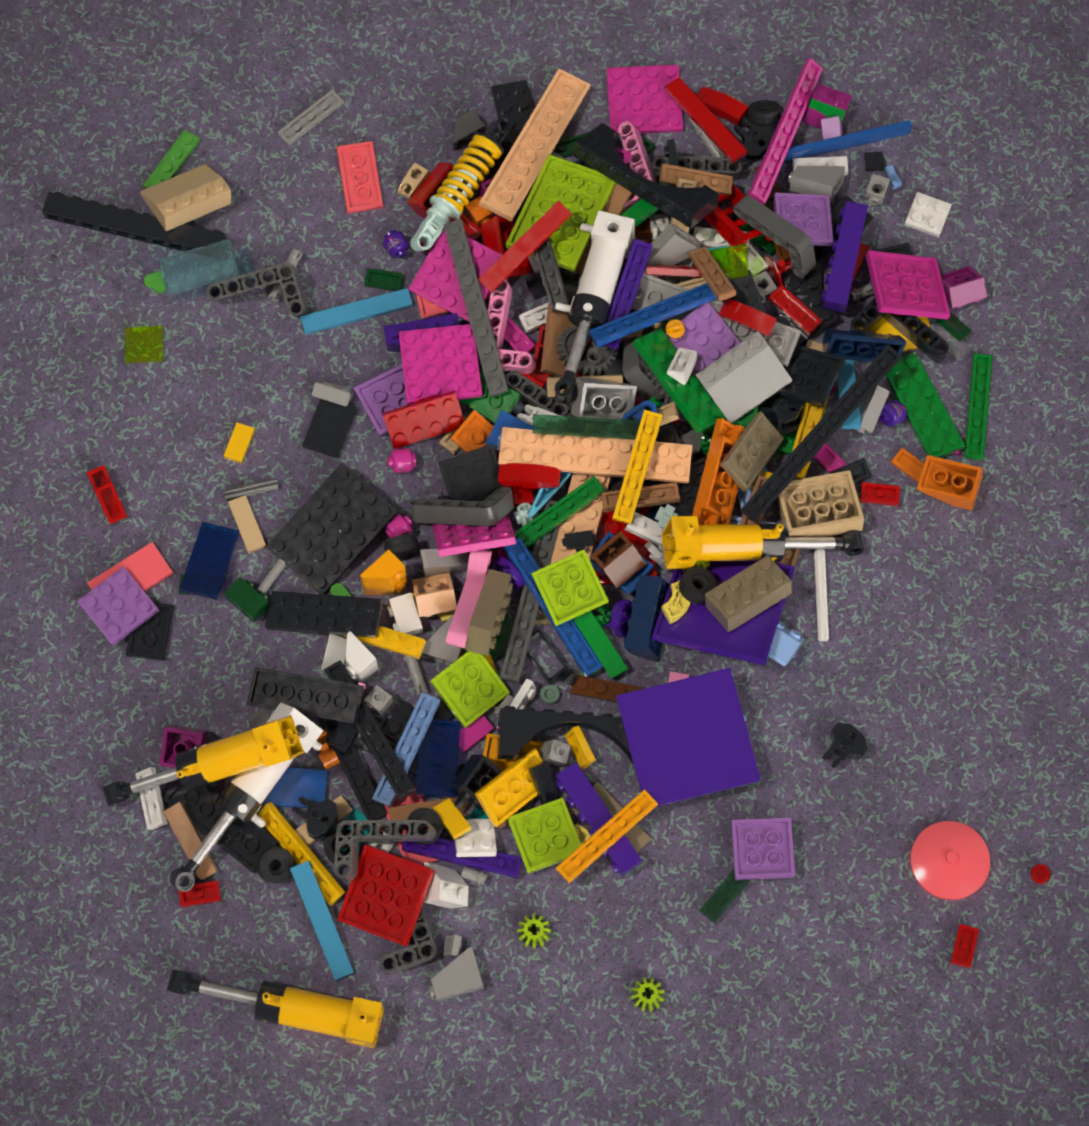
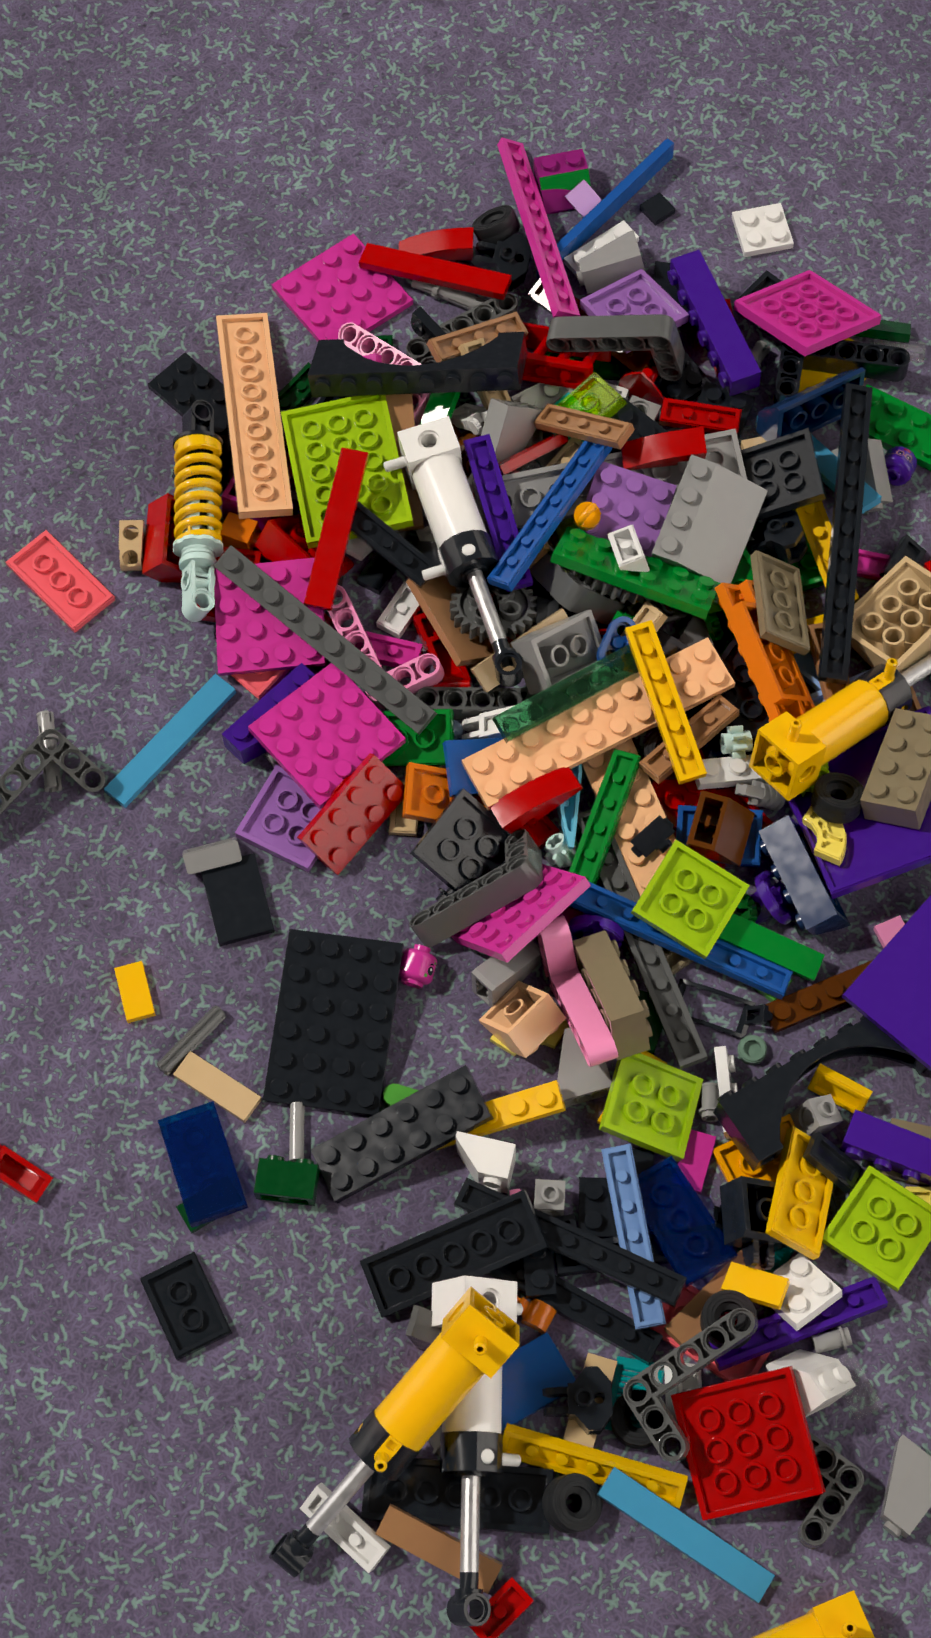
camera: 30 degrees left, 5 degrees down
(118, 606) = (122, 1301): medium lavender plate -> none
(144, 566) = (111, 1255): coral tile -> none
(178, 739) = (331, 1425): magenta slope -> none
(334, 651) = (447, 1174): white slope -> none
(383, 279) = (177, 682): dark green tile -> none
(384, 576) = (449, 1033): light orange slope -> none
(395, 244) = (163, 630): dark purple head -> none
(401, 460) = (359, 882): dark pink head -> none
(403, 546) = (439, 988): black tyre -> none
(405, 615) = (503, 1068): white brick -> none
(416, 675) = (570, 1134): light grey pin -> none
(452, 946) = (873, 1451): light grey plate -> none
(465, 127) = (154, 447): dark grey slope -> none
(876, 183) = (686, 234): light grey brick -> none
(895, 181) = (696, 214): medium blue arm -> none
(963, 287) = (868, 278): magenta slope -> none

